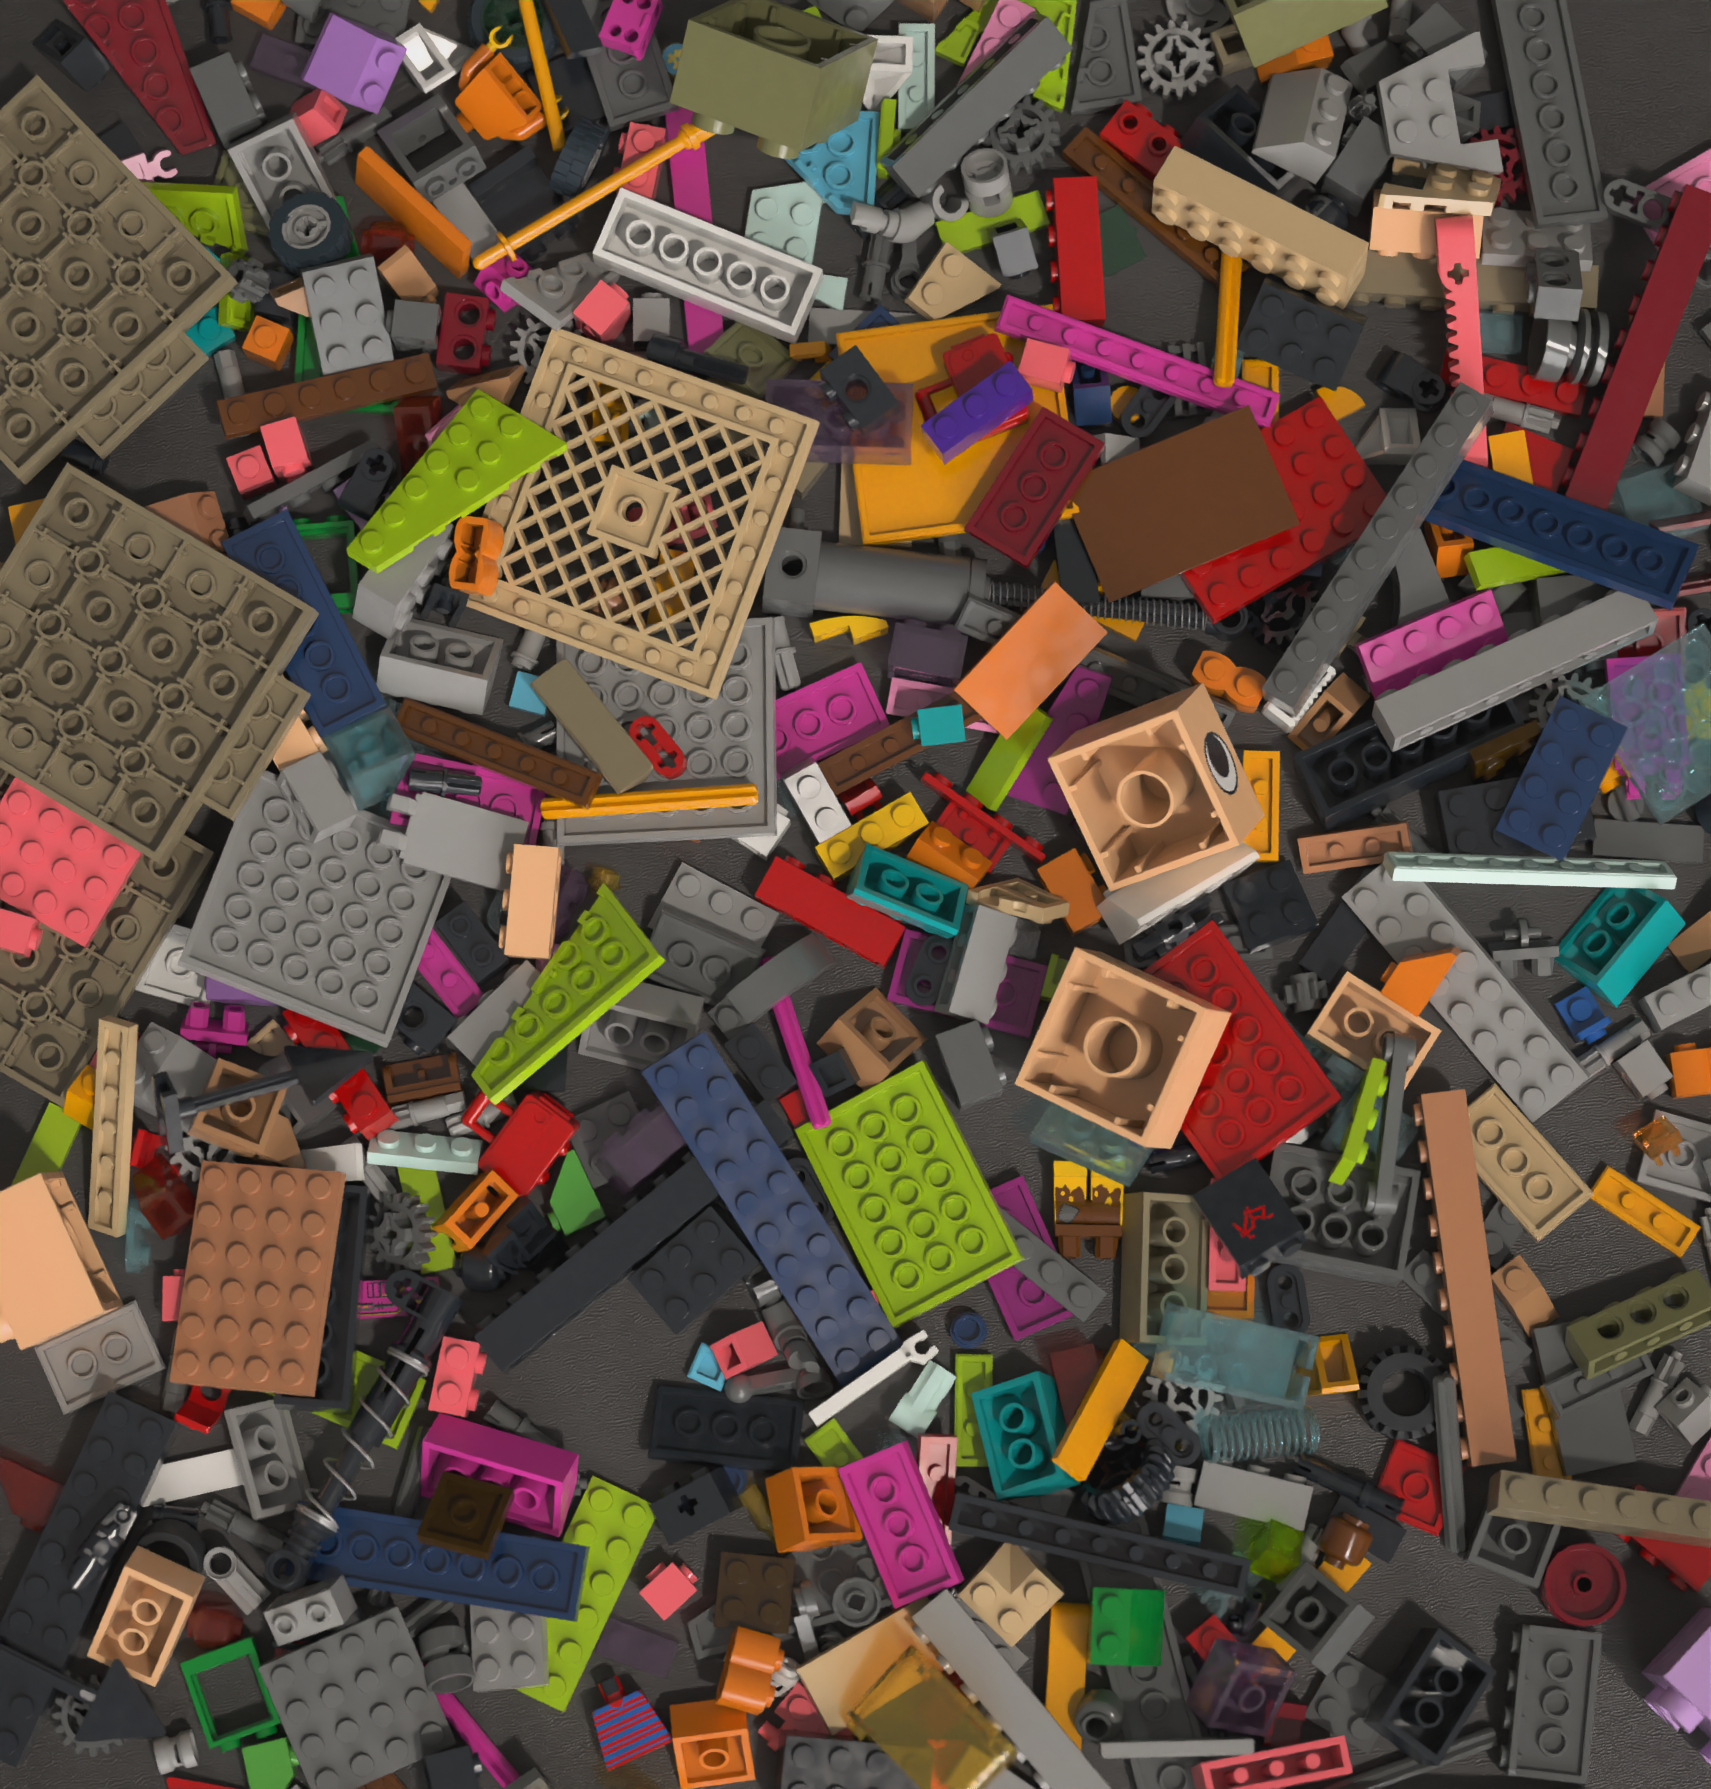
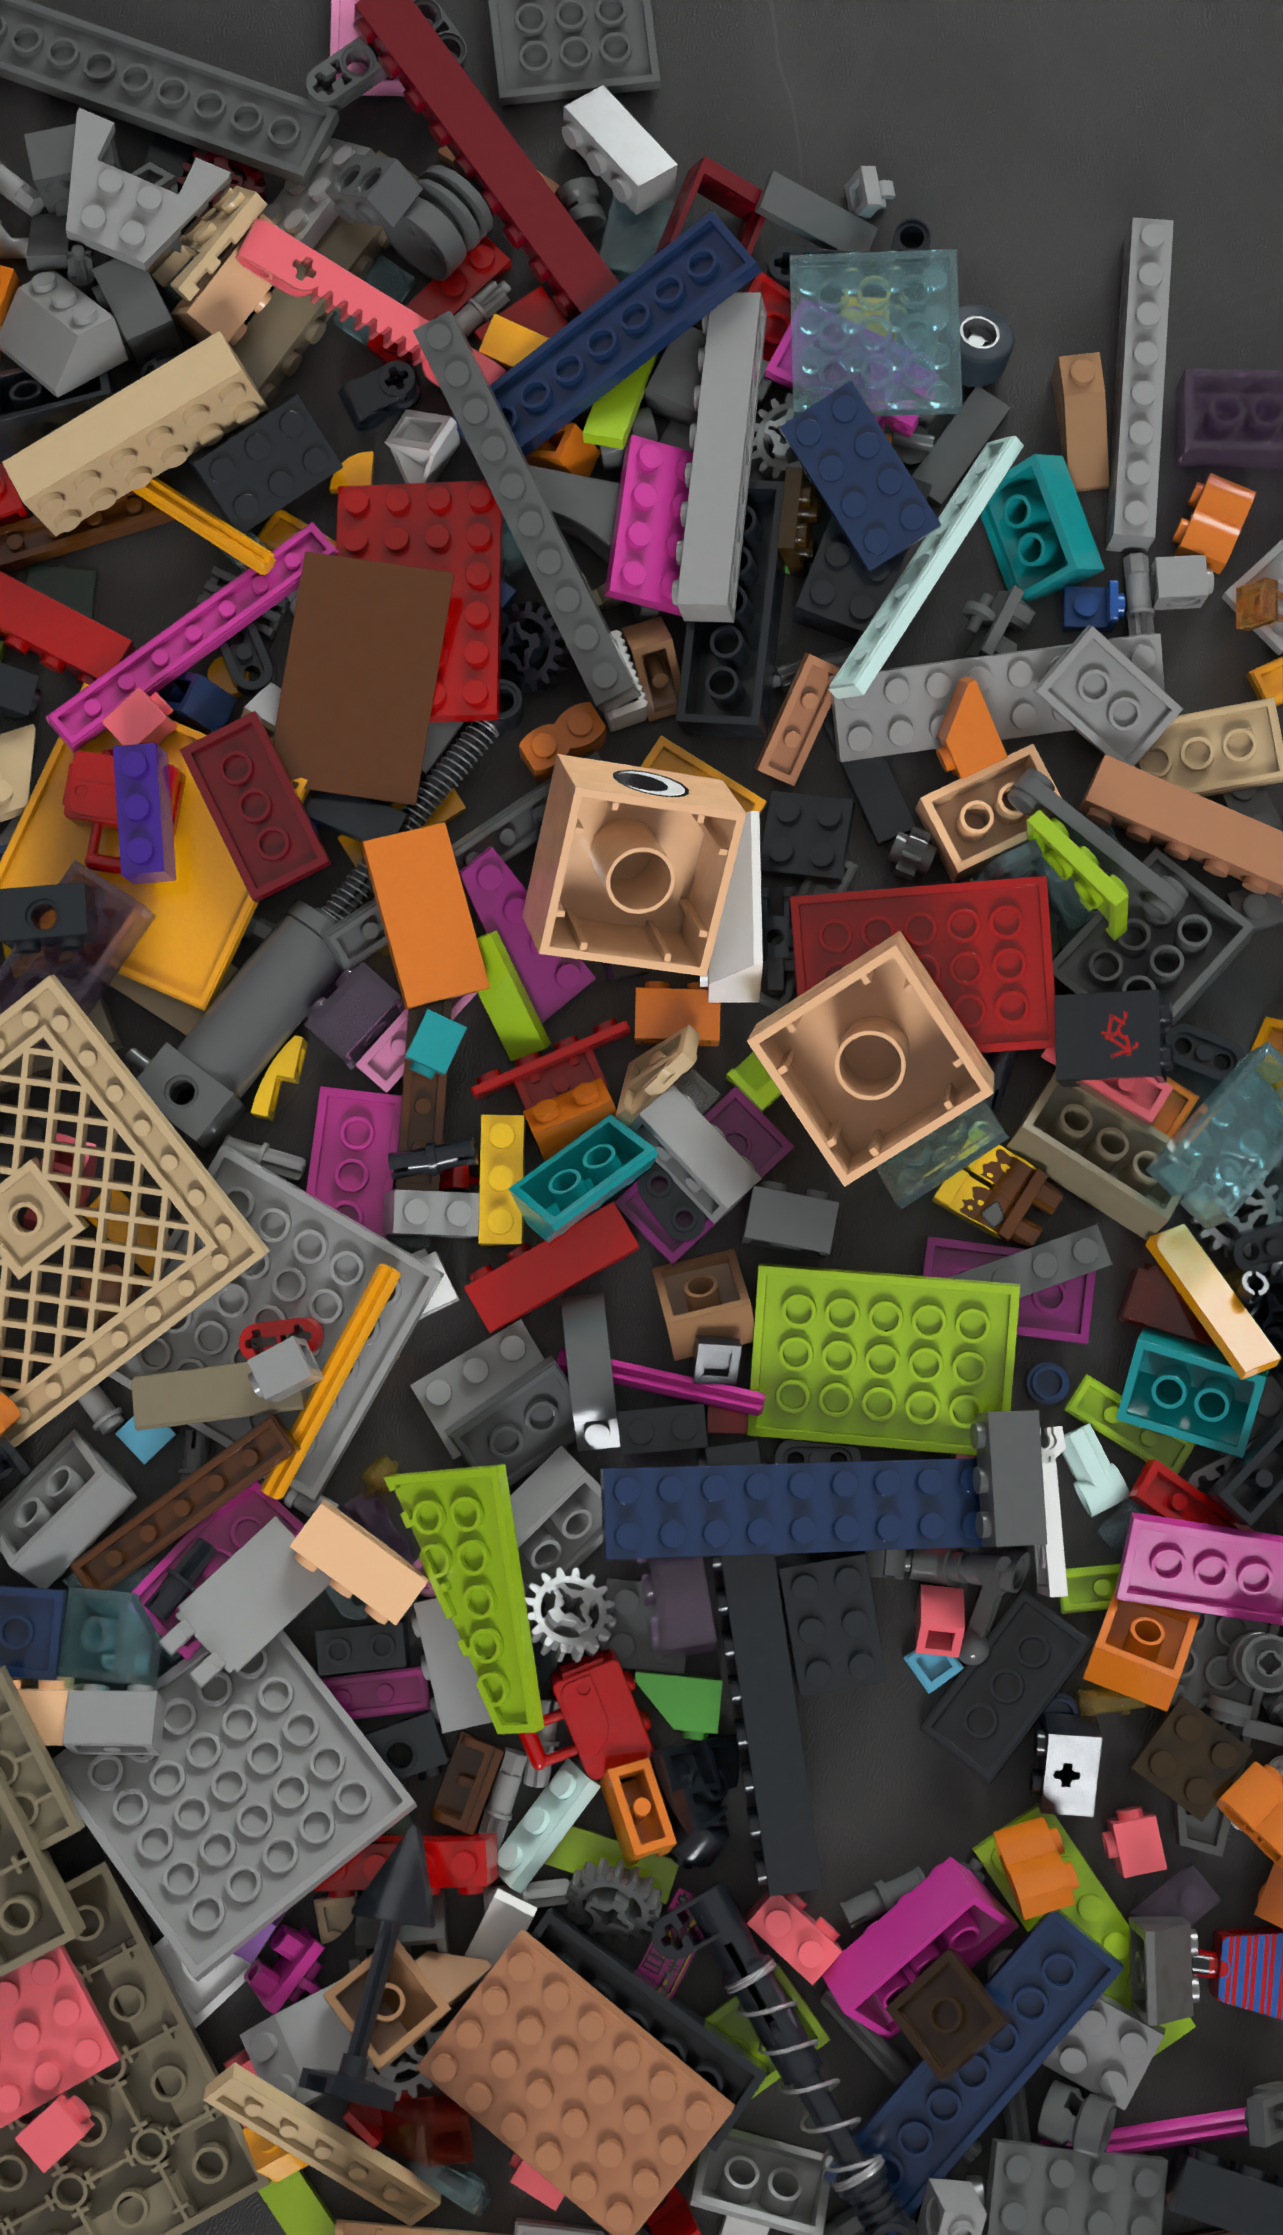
camera: 60 degrees left, 0 degrees up
(586, 1075) = (567, 1619): none -> light grey gear
(591, 1656) = (1162, 1968): none -> flat silver slope
(607, 1518) = (1034, 1867): none -> orange brick
(637, 762) = (283, 1370): none -> light grey brick
(856, 776) = (433, 1158): none -> black pin
(875, 1332) = (1009, 1478): none -> dark grey brick
(1511, 1067) = (1107, 698): none -> light grey plate

